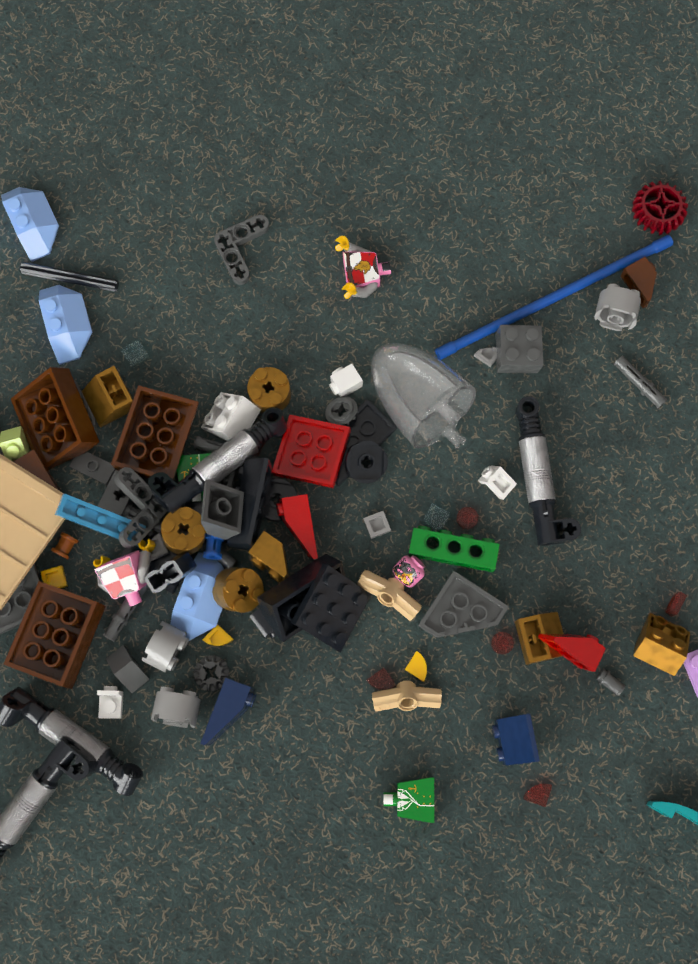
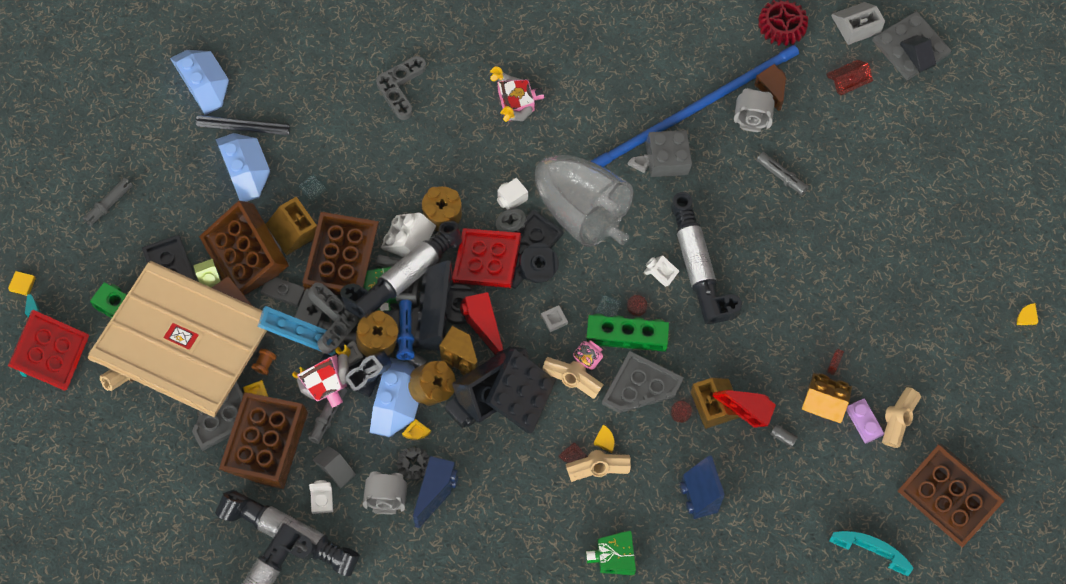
camera: 10 degrees left, 10 degrees down
(165, 646) = (369, 439): light grey brick -> none
(221, 510) = (412, 310): dark grey slope -> none
(538, 794) = (728, 540): clear red tile -> none

